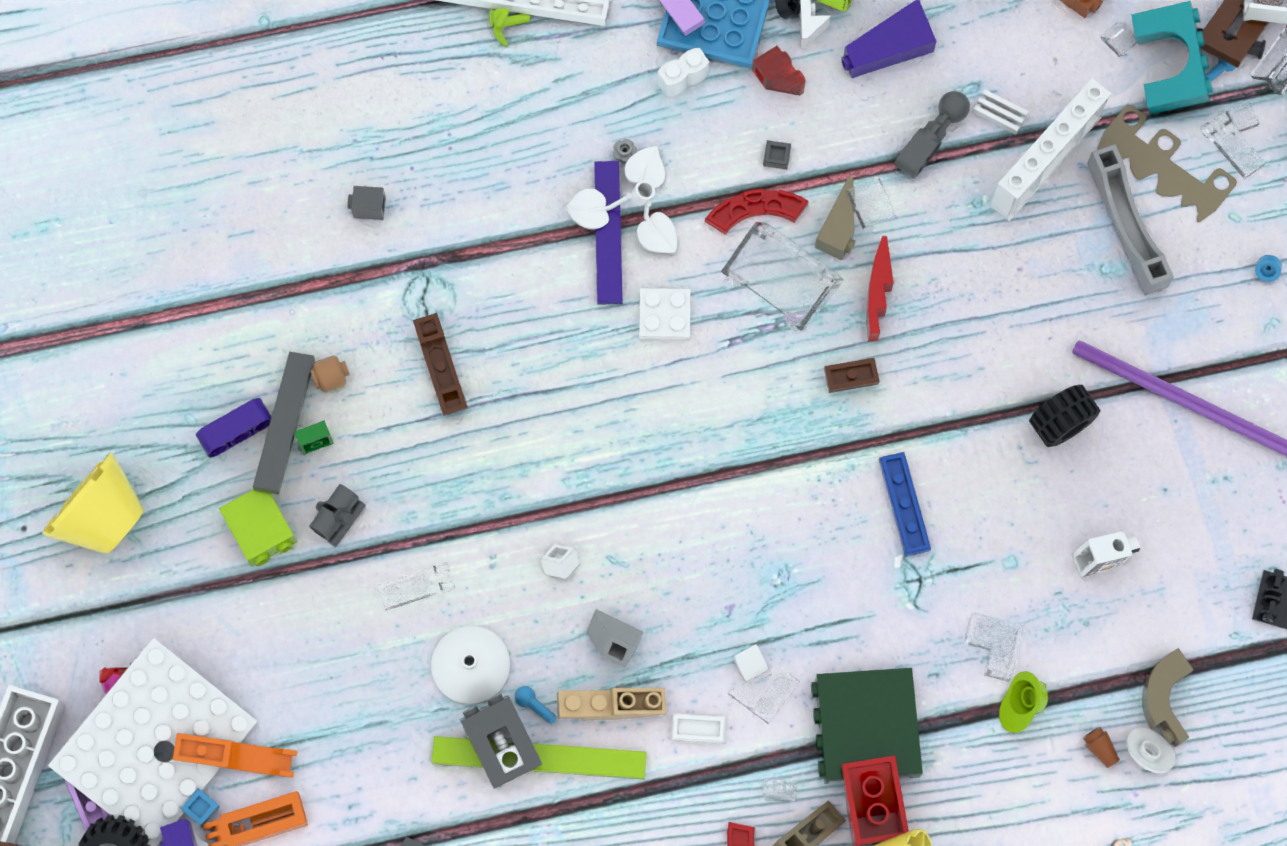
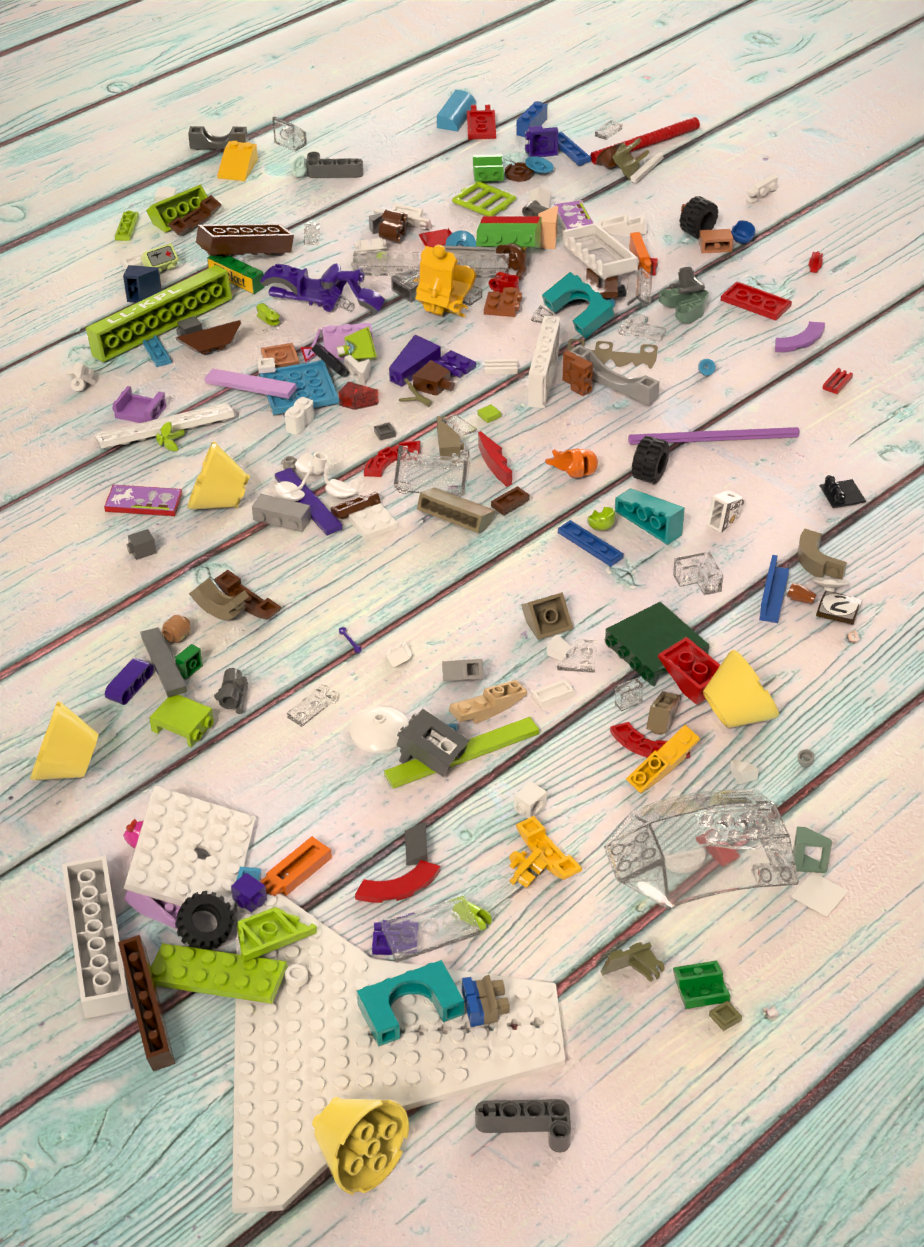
camera: 30 degrees left, 30 degrees down
(233, 755) = (244, 836): orange piece -> none
(400, 355) = (216, 602): none -> dark tan arch
(415, 119) = (143, 500): none -> tile
(504, 155) = (219, 482): none -> light yellow cone
(521, 481) = (342, 630): none -> dark purple hinge
(560, 240) = (281, 512): none -> light grey brick
(657, 276) = (356, 504): none -> reddish brown hinge
(768, 603) = (547, 616): none -> dark tan slope
(773, 354) = (455, 509): none -> dark tan brick
(857, 108) = (419, 397): none -> olive plant
(894, 93) = (433, 379): none -> reddish brown torso
(924, 144) = (468, 392): dark grey beam -> none
(928, 195) = (489, 413): none -> lime tile
(940, 476) = (602, 520): none -> lime hair
(949, 70) = (456, 363): none -> dark purple plate
(976, 362) = (575, 462): none -> orange piece
(1005, 504) = (651, 514): none -> teal wedge
(1022, 701) = (737, 591): lime piece -> none
(1071, 723) = (773, 592): none -> blue fence
(1083, 196) = (577, 373): none -> dark orange plate
(1133, 796) = (839, 607): none -> slope

